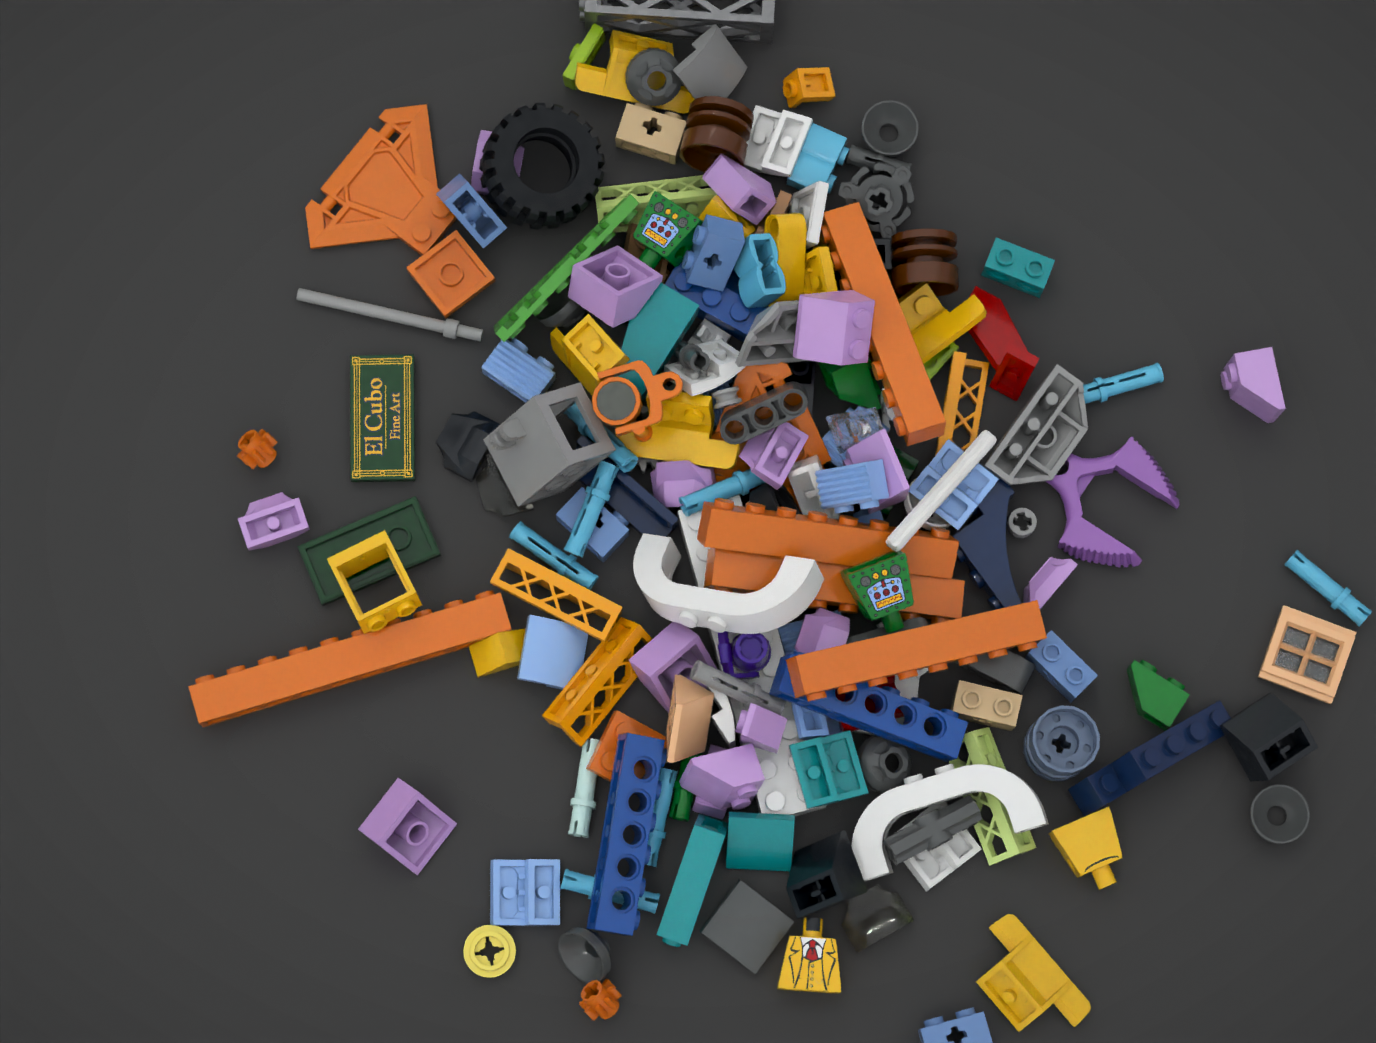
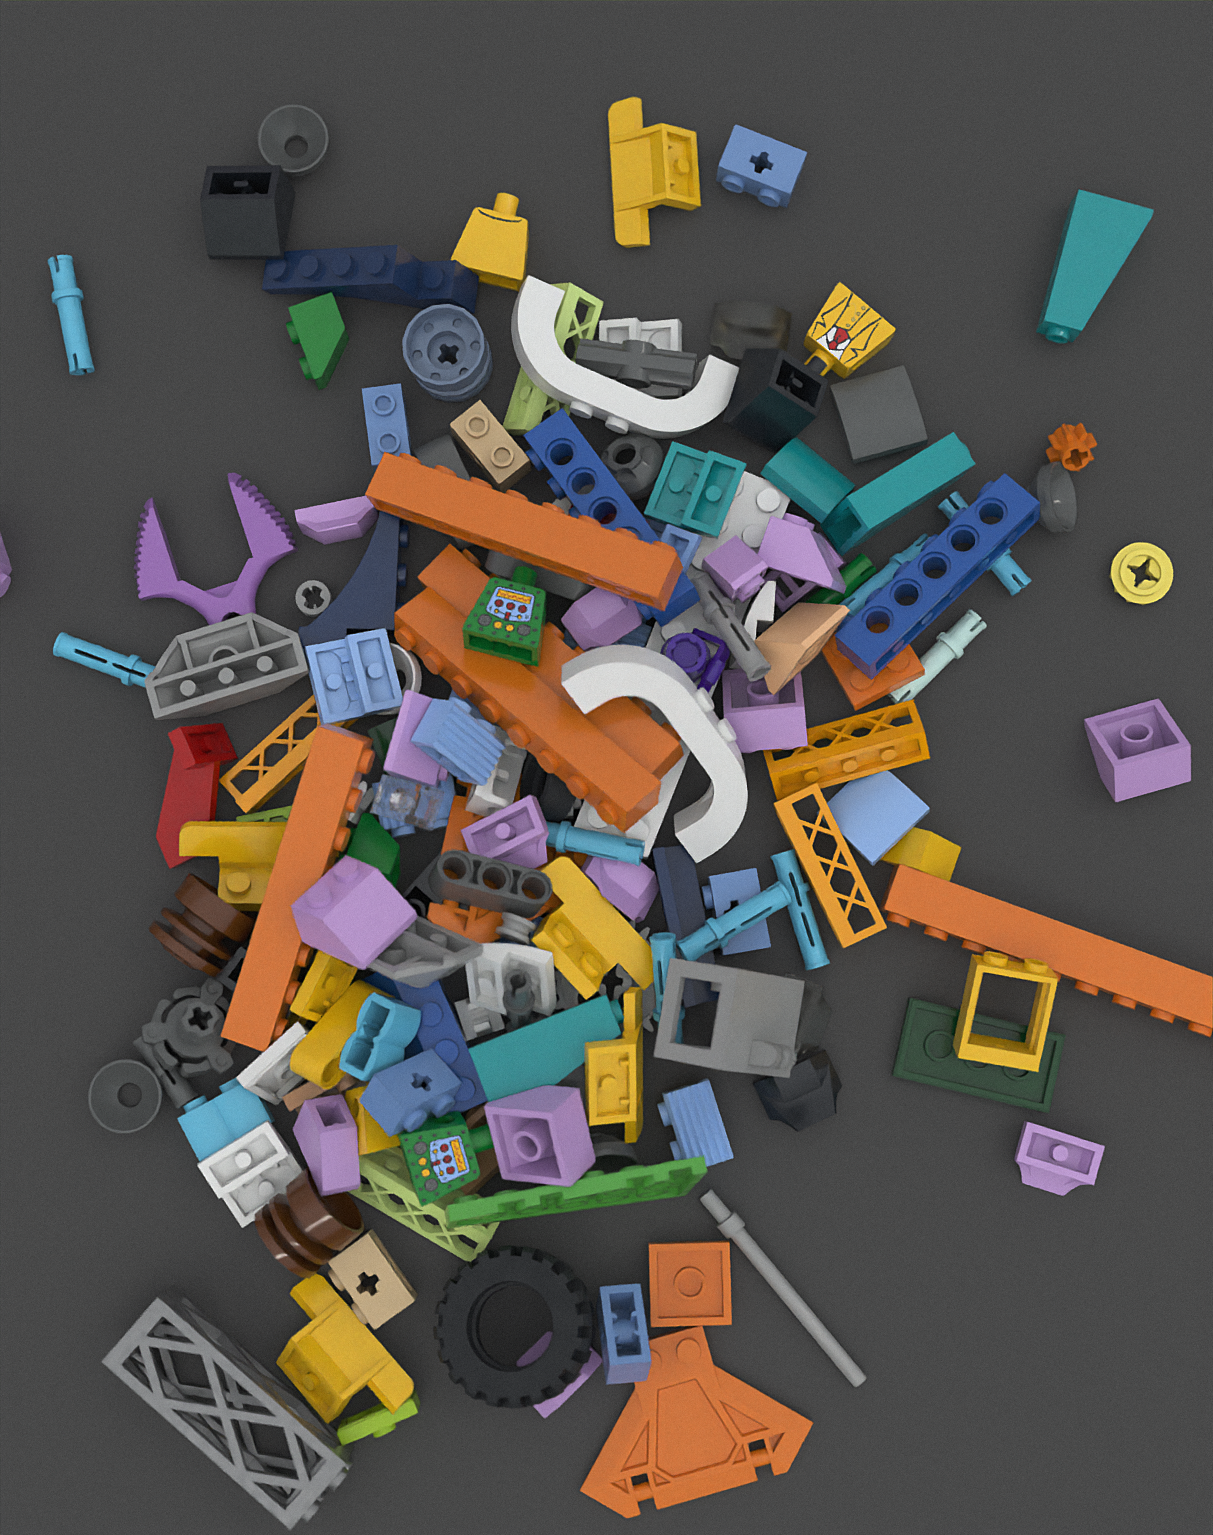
camera: 145 degrees left, 5 degrees up
(257, 448) = (1021, 1244): orange gear -> none
(382, 418) = (867, 1183): dark green tile -> none
(525, 892) = (1066, 604): light blue slope -> none
(620, 402) = (629, 1004): orange piece -> none
(642, 66) = (320, 1355): dark grey piece -> none
(712, 67) = (257, 1300): light grey slope -> none
(808, 86) = (172, 1206): light orange bracket -> none
(941, 491) = (374, 671): white axle -> none
(1018, 267) = (112, 852): teal brick -> none
(1307, 654) = (143, 270): light nougat piece -> none

